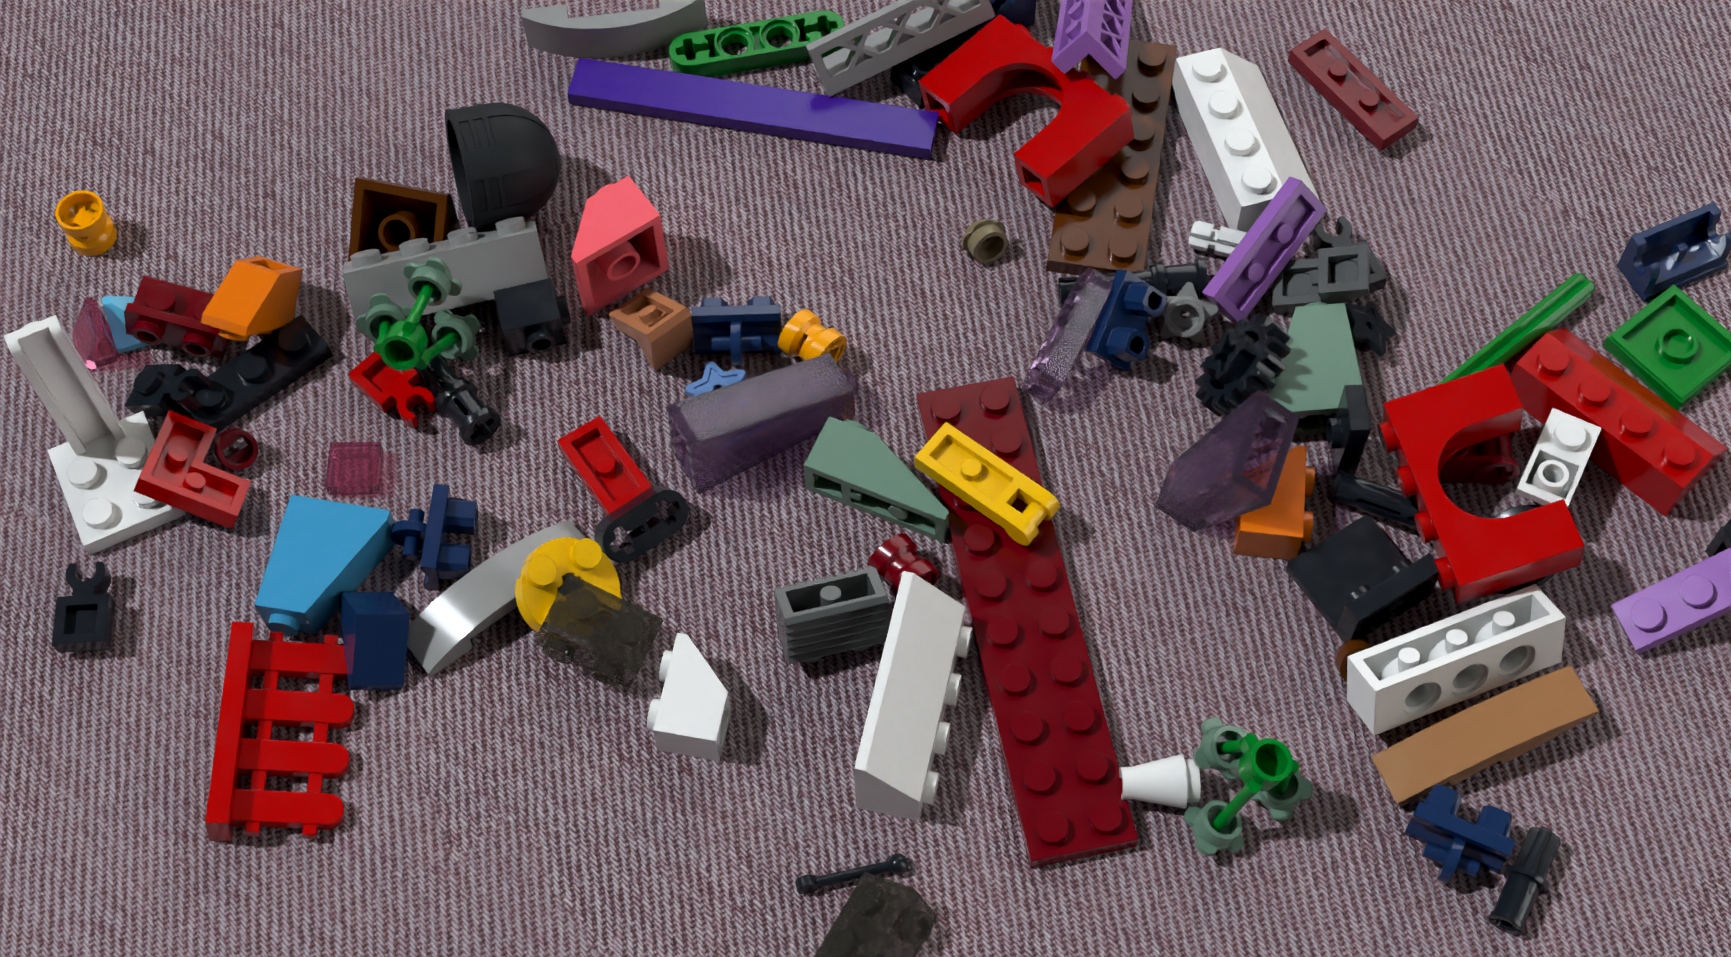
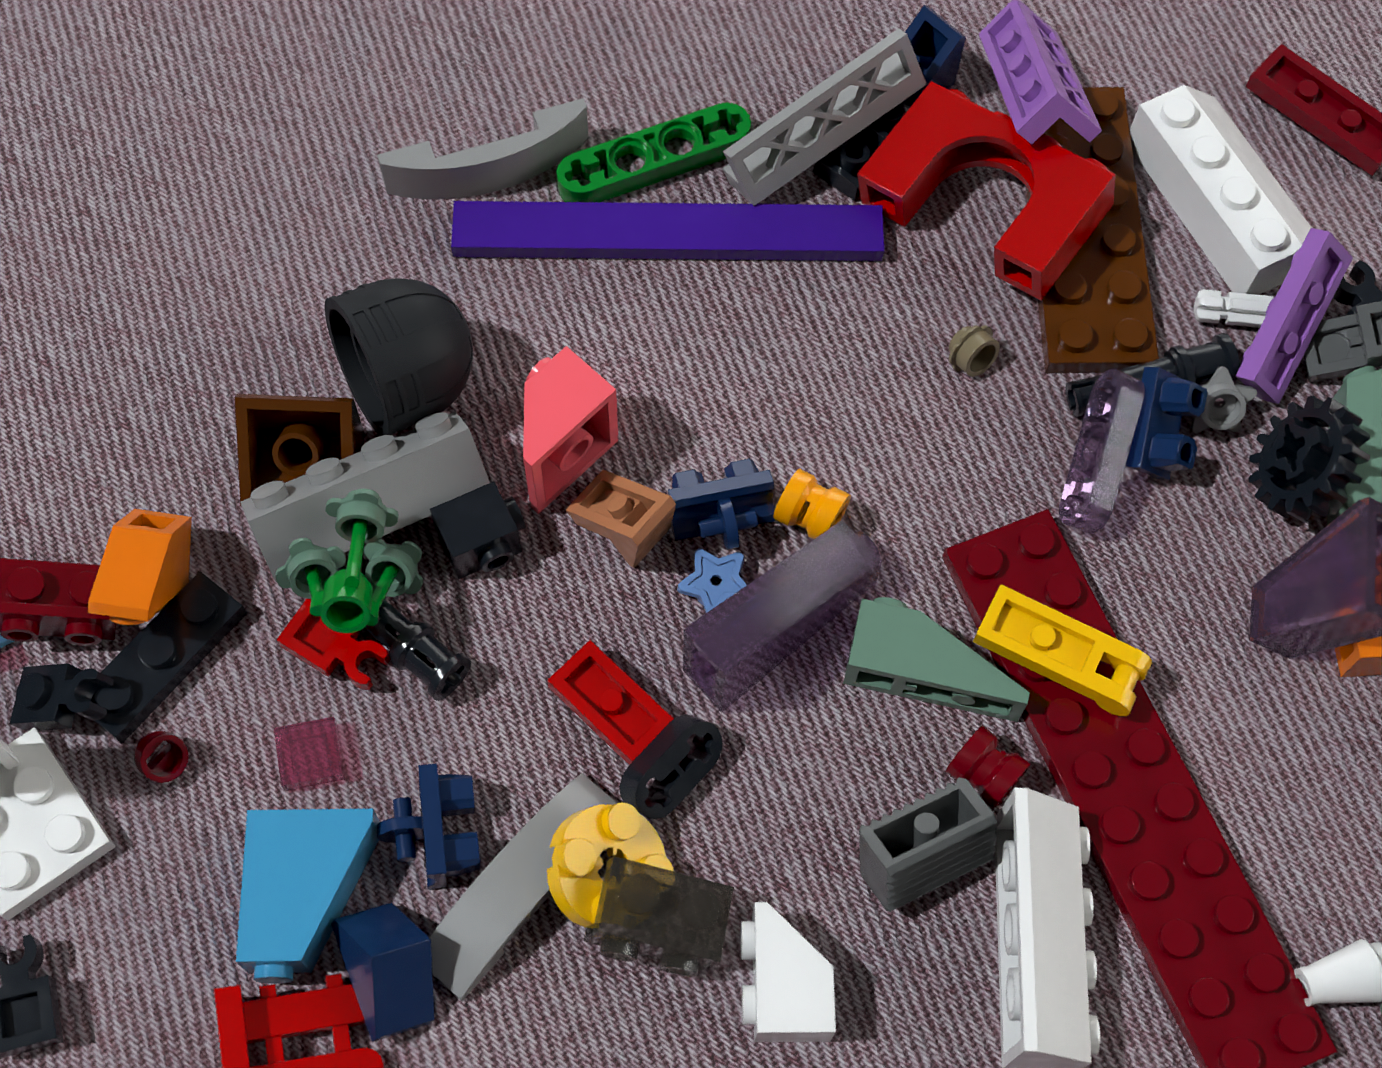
camera: 15 degrees left, 5 degrees up
(181, 479) = (103, 811): red plate -> none

